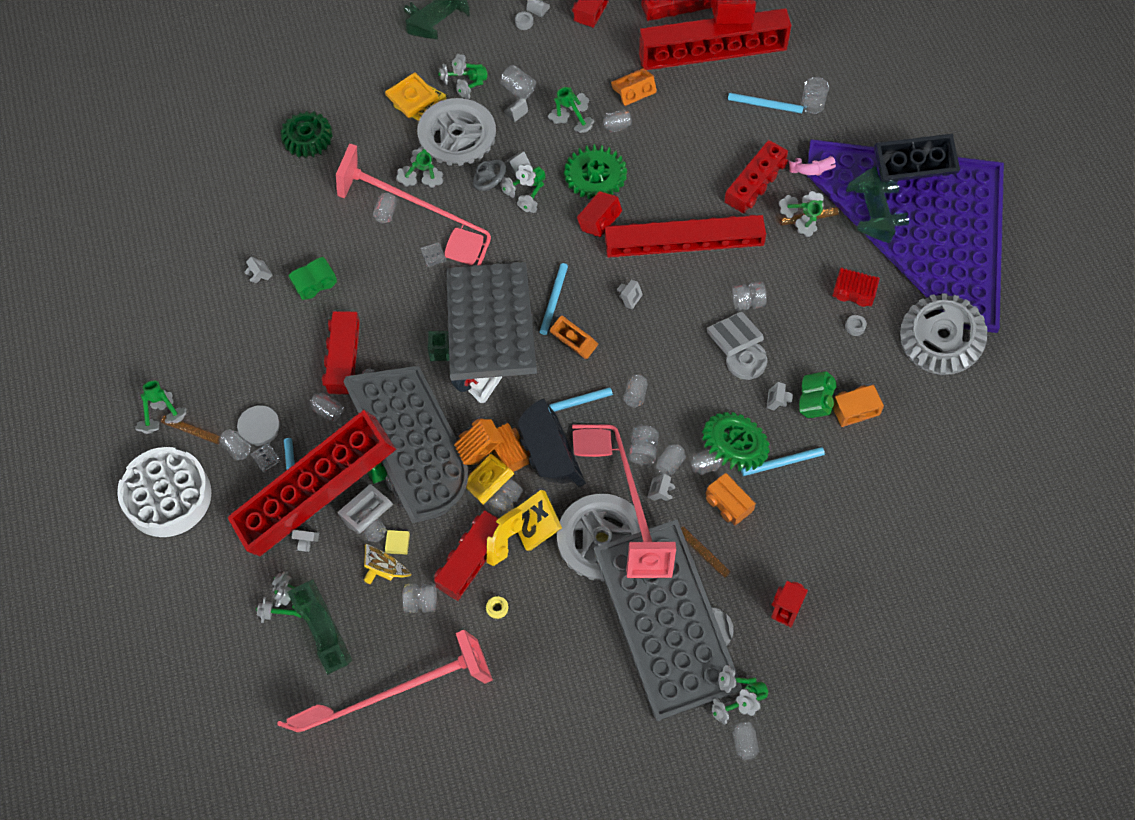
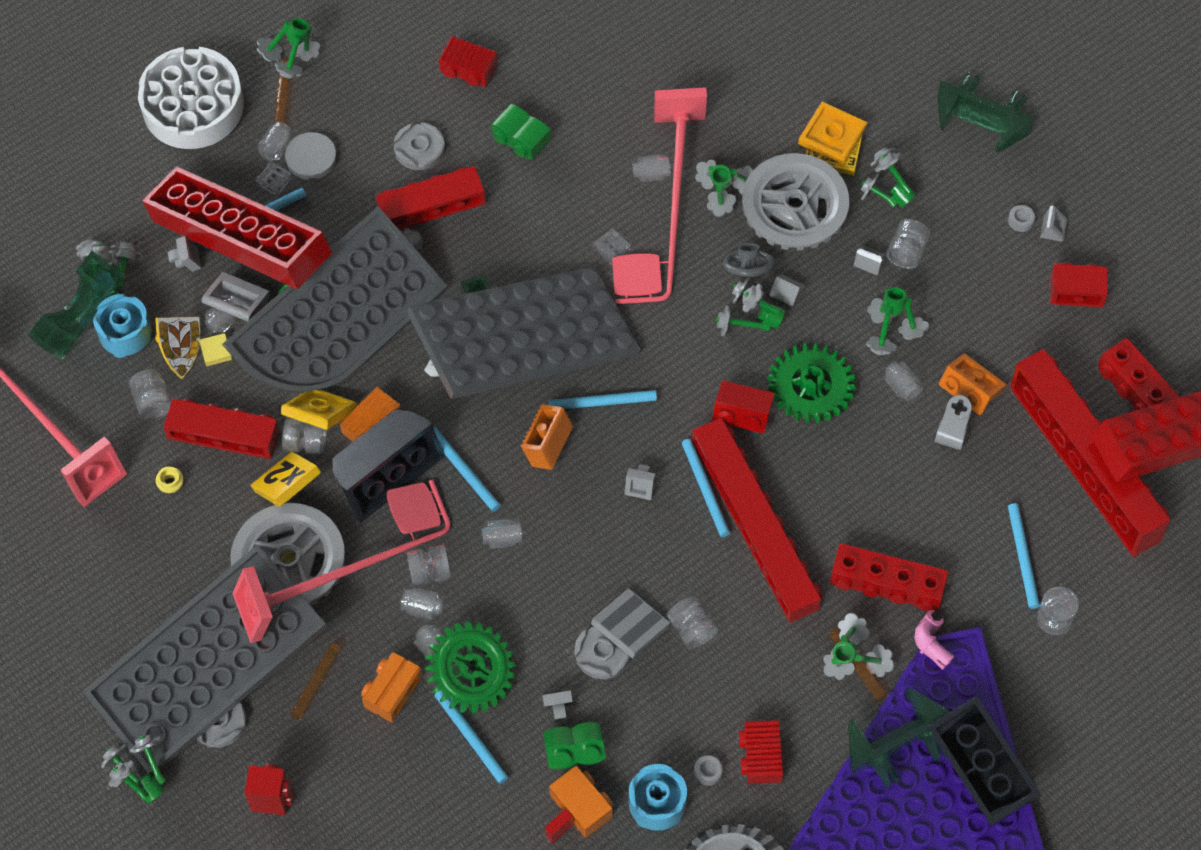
camera: 70 degrees right, 0 degrees up
(234, 293) = (468, 62): none -> red brick
(259, 270) = (511, 72): light grey tile -> none
(287, 350) = (419, 146): none -> light grey tile
(306, 134) = (708, 52): dark green gear -> none
(326, 406) = (356, 208): clear brick -> none
(337, 598) = (122, 325): none -> medium azure brick
(478, 441) = (361, 380): orange brick -> none
(498, 545) = (240, 447): yellow plate -> none
(647, 259) = (706, 488): none -> medium azure bar
(659, 488) = (379, 602): light grey tile -> none
(661, 103) = (953, 426): none -> light grey piece
(745, 741) = (87, 796): clear brick -> none
(871, 356) = (653, 813): none -> medium azure brick
(871, 424) = (559, 826): none -> red tile

